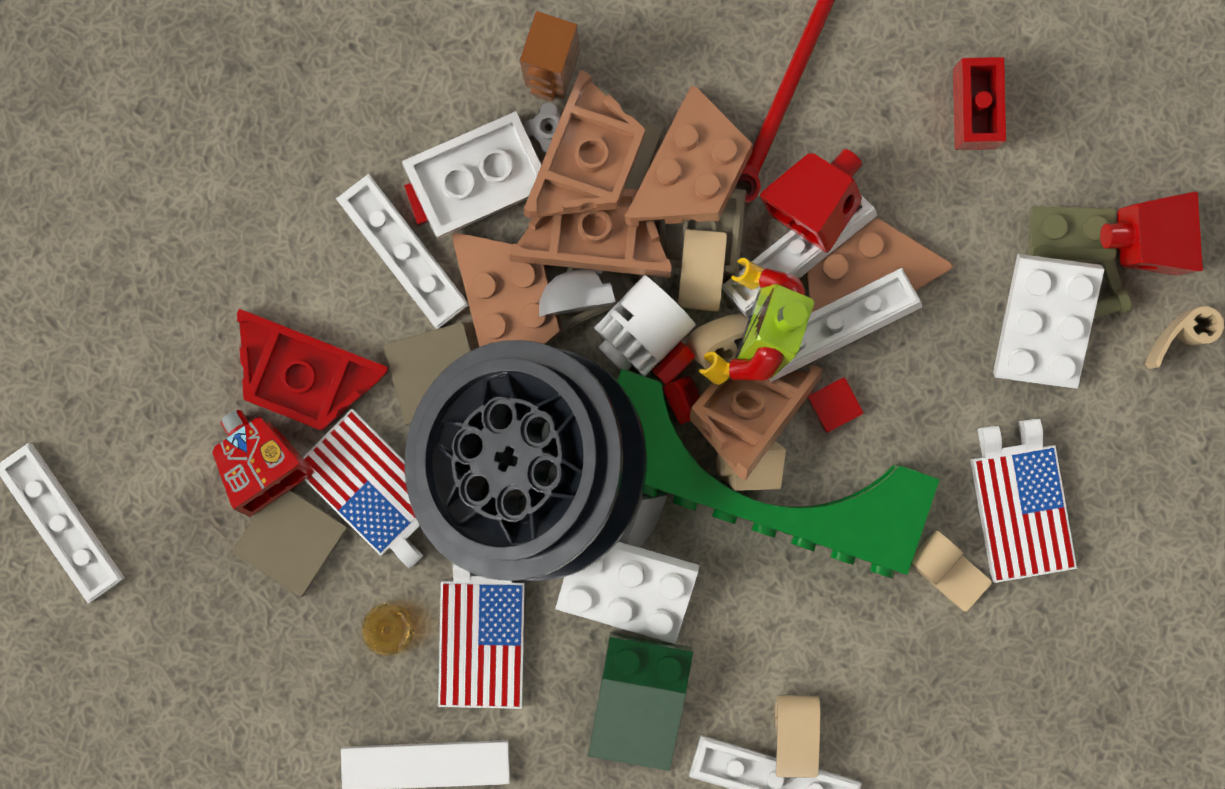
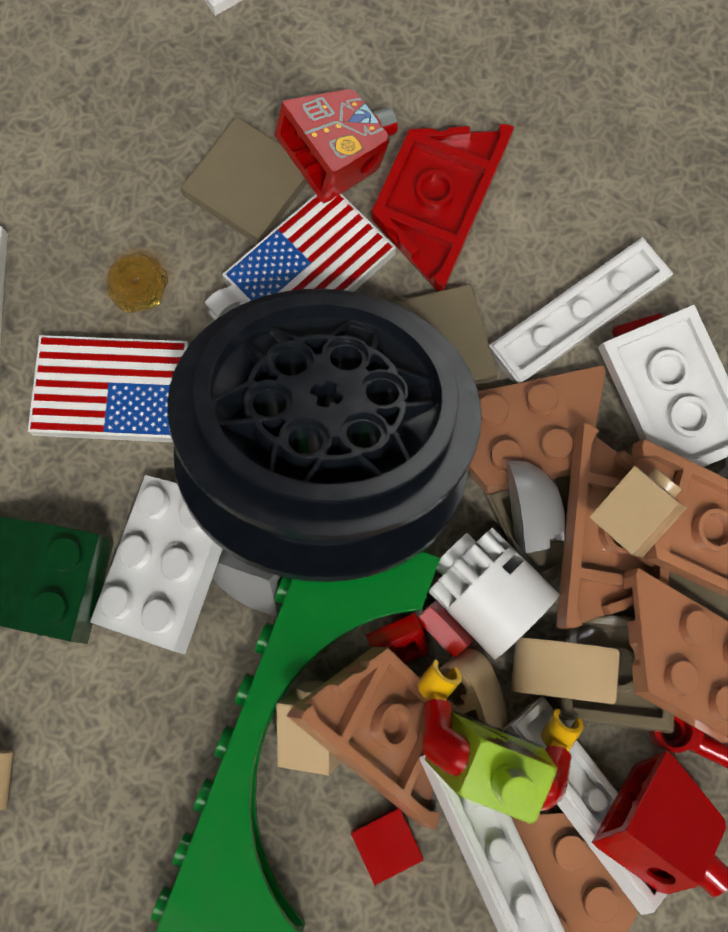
camera: 90 degrees right, 10 degrees down
(583, 217) = (640, 510): none -> tan brick

